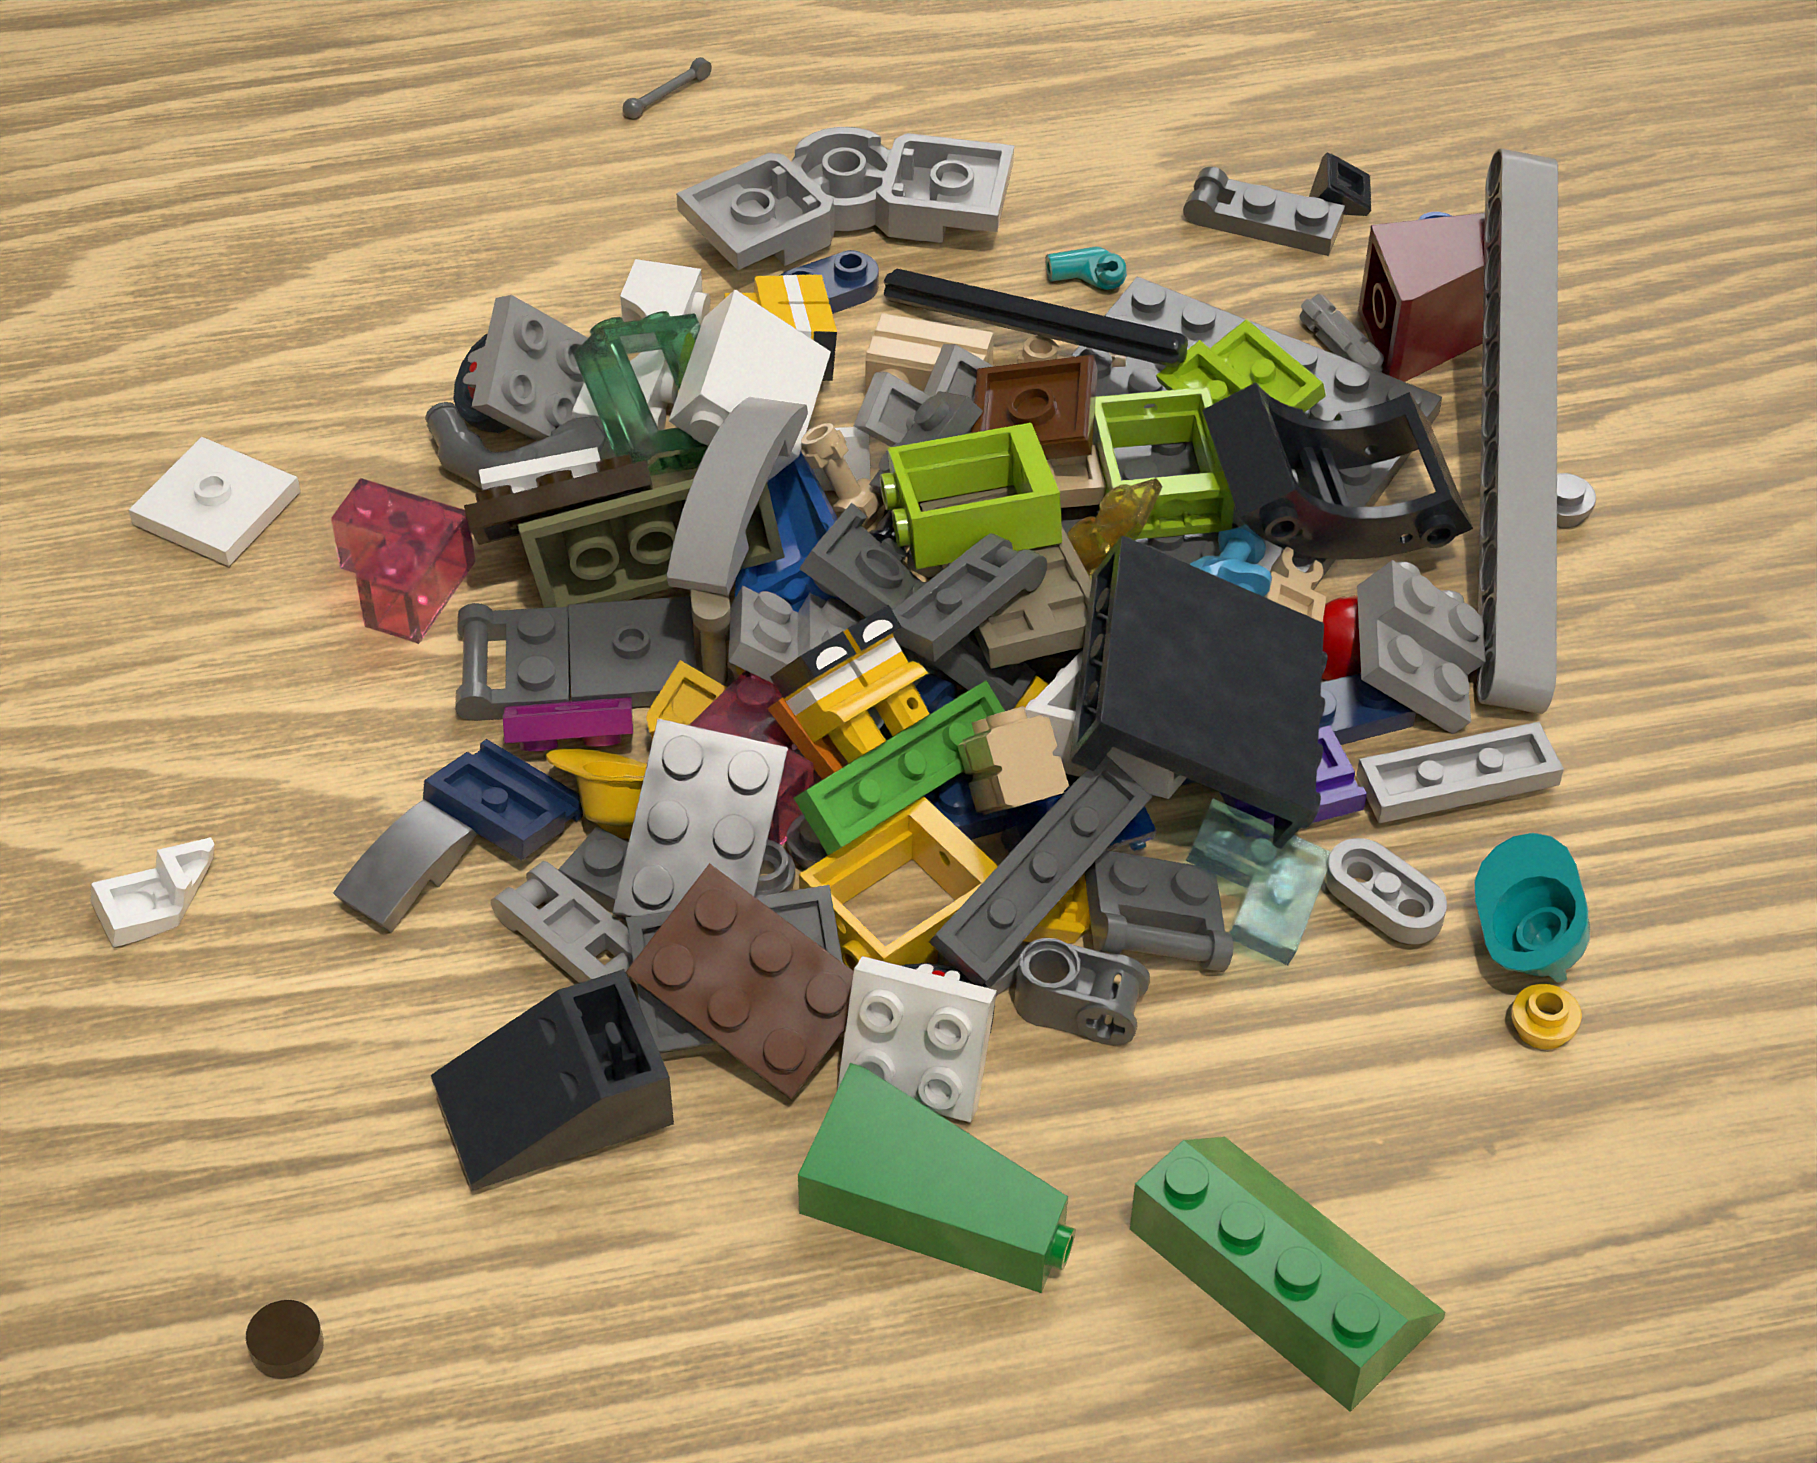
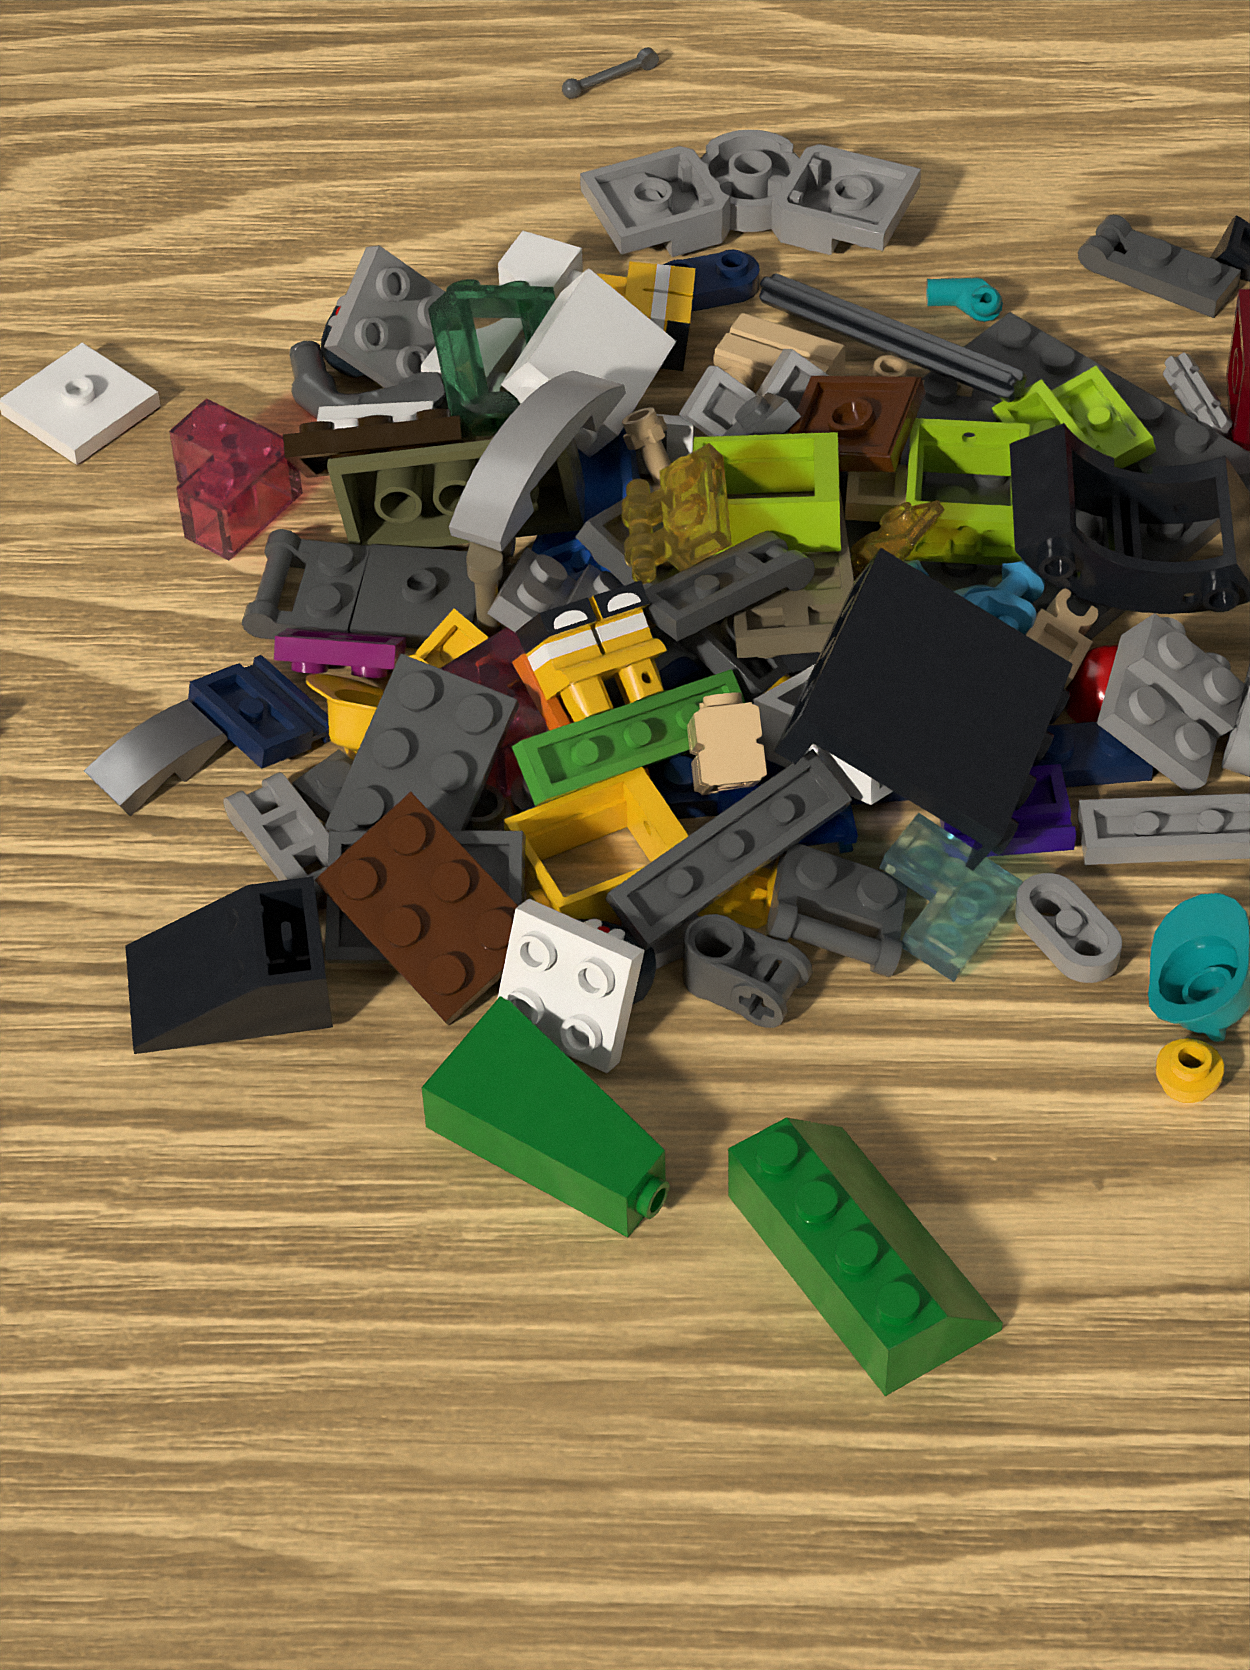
camera: 15 degrees right, 0 degrees up
(920, 525) = (692, 512): none -> clear yellow plate

